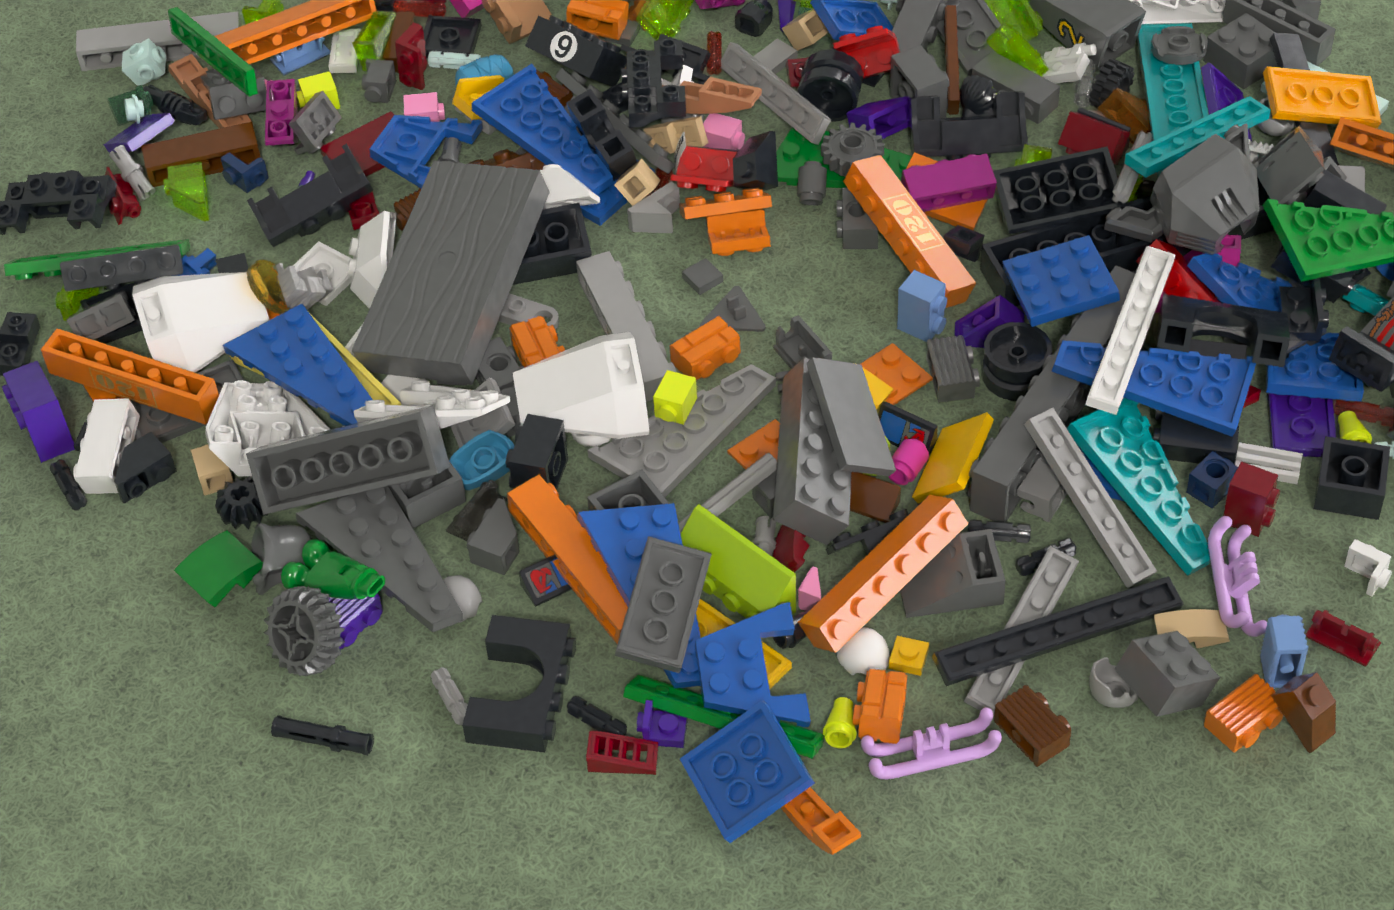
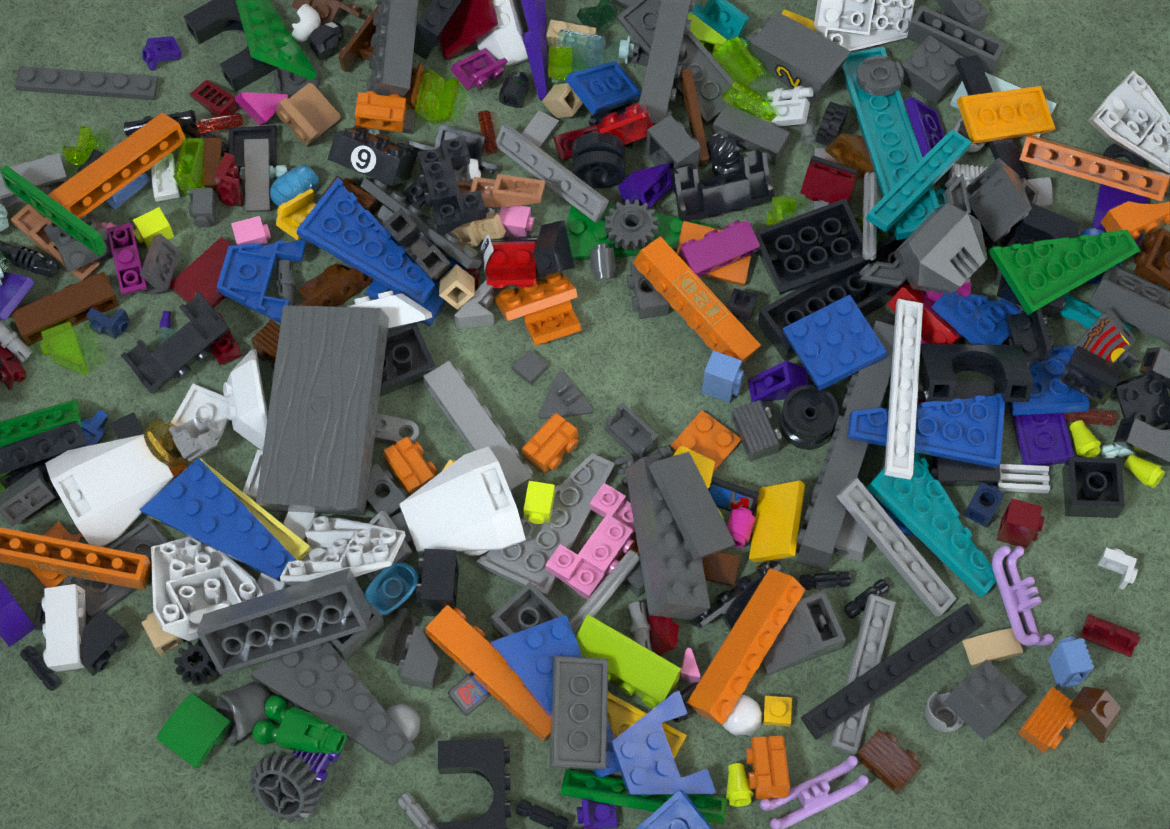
camera: 15 degrees left, 15 degrees up
(446, 57) = (257, 175): none -> dark grey tile
(712, 470) = (602, 550): none -> bright pink bracket

